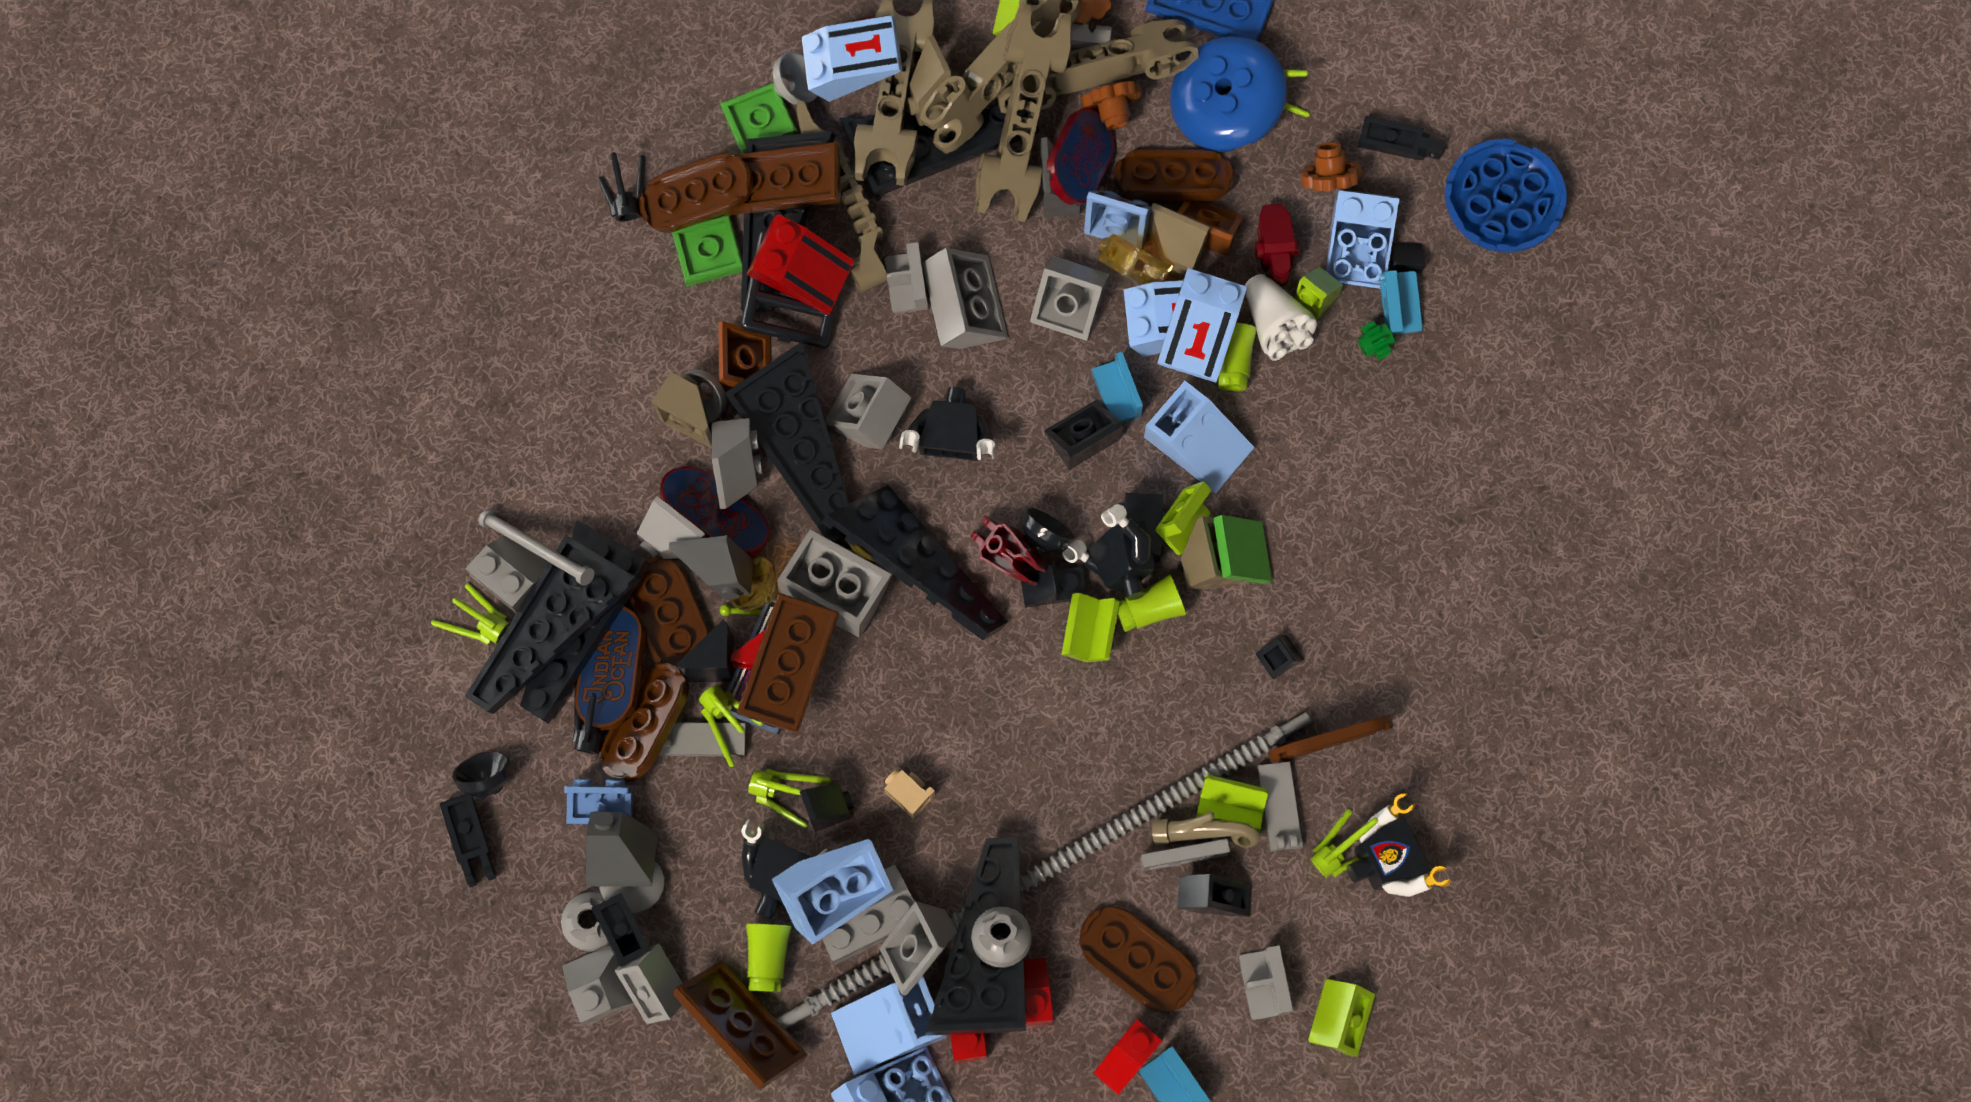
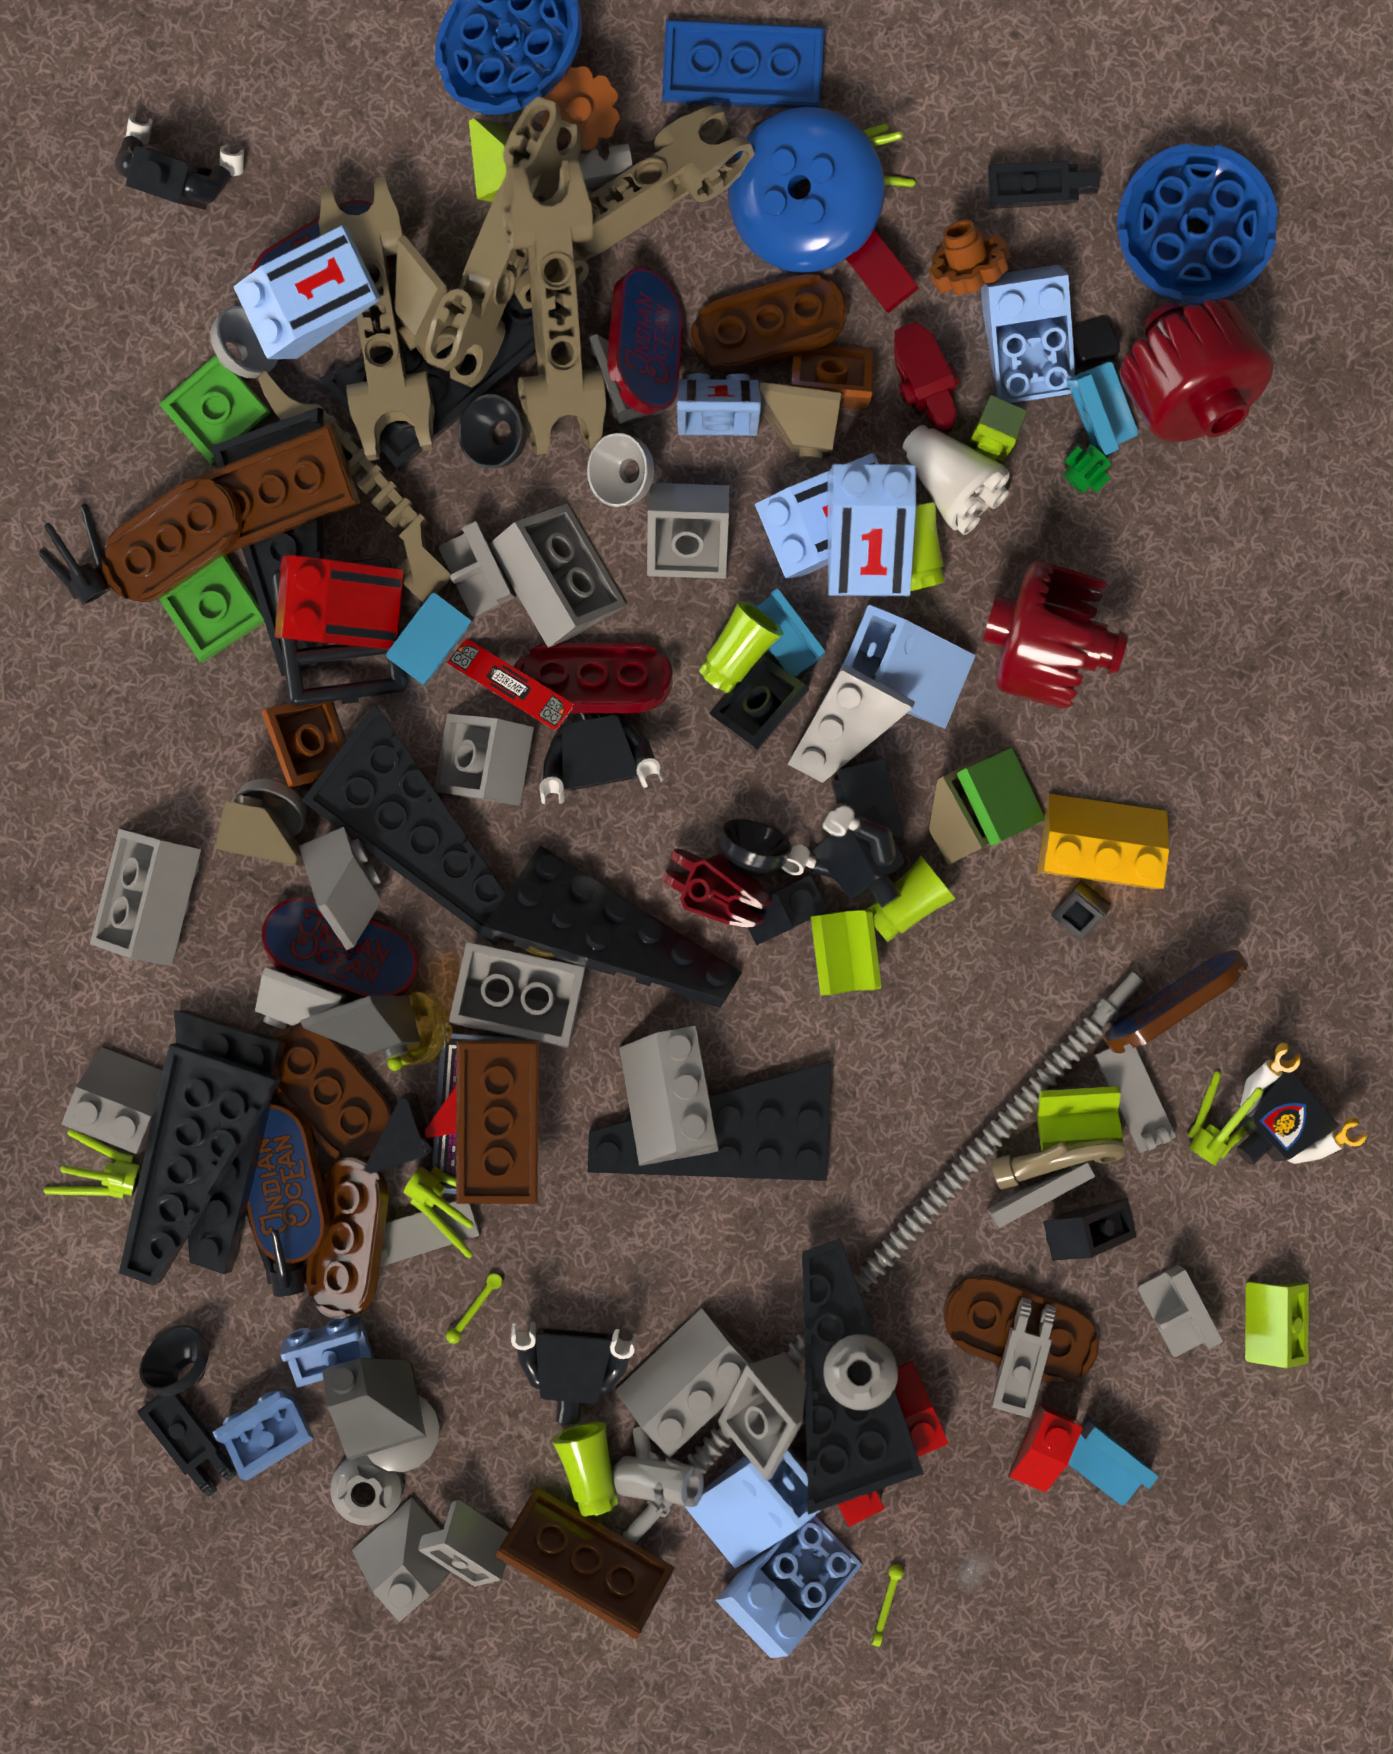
camera: 20 degrees left, 15 degrees up
(528, 850) = (264, 1433): none -> medium blue bracket
(583, 575) = (210, 1095): light grey bar -> none
(586, 432) = (145, 897): none -> light grey slope
(620, 930) = (408, 1500): black slope -> none
(742, 795) = (454, 1335): none -> lime hinge
(767, 785) = (519, 1266): lime plant -> none
(816, 978) = (656, 1480): none -> light grey piece
(826, 805) = (599, 1272): black slope -> none
(832, 888) = (641, 1379): light blue slope -> none
(856, 314) = (428, 638): none -> dark azure panel
(905, 360) = (511, 684): none -> sticker
(908, 792) = (690, 1220): tan brick -> none
(923, 691) = (668, 1096): none -> light grey slope
(942, 183) = (478, 427): none -> black piece
(966, 376) = (601, 675): none -> dark red tile
(974, 742) = (760, 1131): none -> black wing
(1027, 236) = (608, 465): none -> light grey piece
(1080, 386) = (739, 646): none -> lime plant
(1112, 102) = (662, 251): dark orange plant -> none
(1123, 255) = (742, 461): clear yellow torso -> none
(1130, 980) = (1023, 1362): none -> light grey hinge
(1141, 460) = (847, 722): none -> wing
(1182, 516) = (917, 776): lime panel -> none
(1266, 164) = (882, 273): none -> dark red slope
(1310, 611) = (1105, 842): none -> yellow slope
(1313, 437) = (1051, 635): none -> dark red piece
(1475, 291) = (1198, 372): none -> dark red piece

